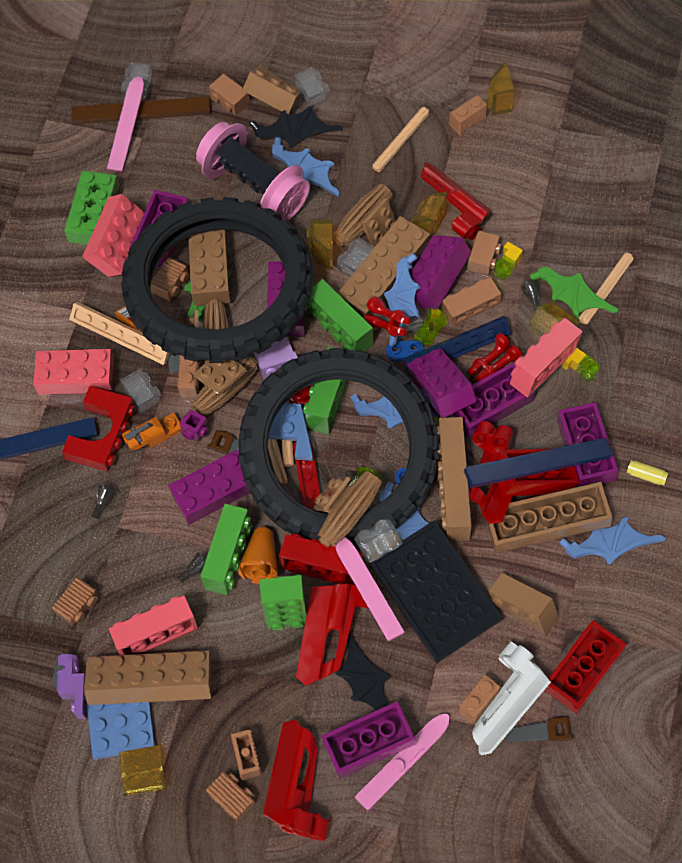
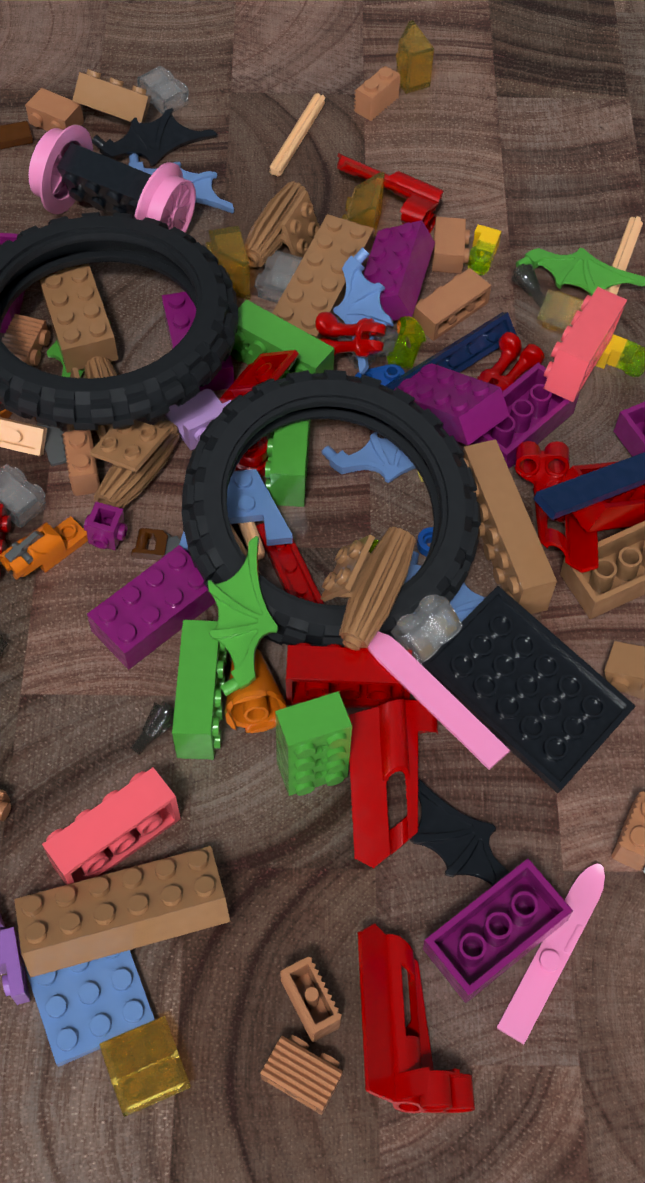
camera: 20 degrees left, 5 degrees down
(260, 511) = (241, 619): none -> bright green animal
(317, 338) = (265, 367): none -> red slope

